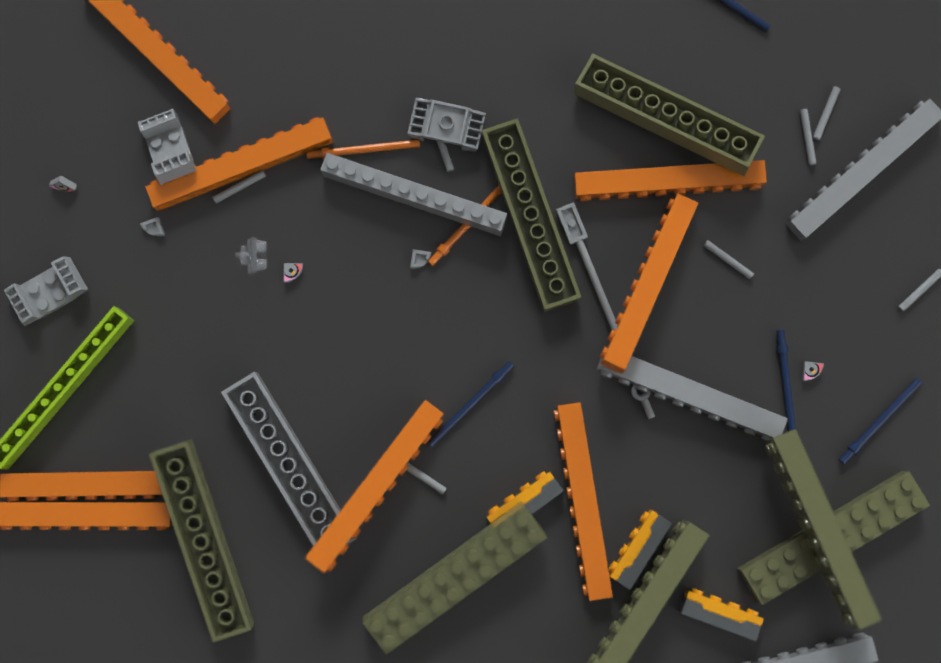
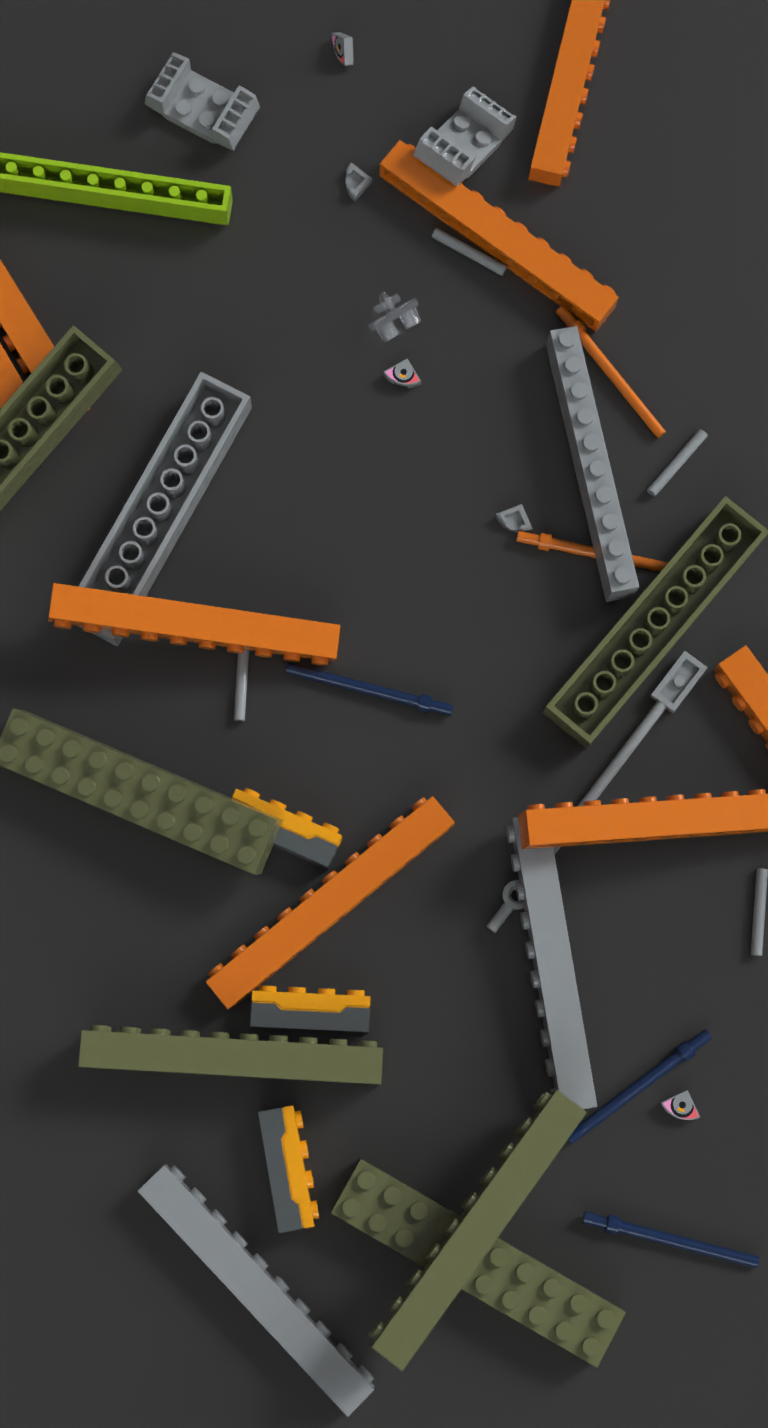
camera: 55 degrees right, 5 degrees down
(446, 123) = (706, 451): light grey plate -> none

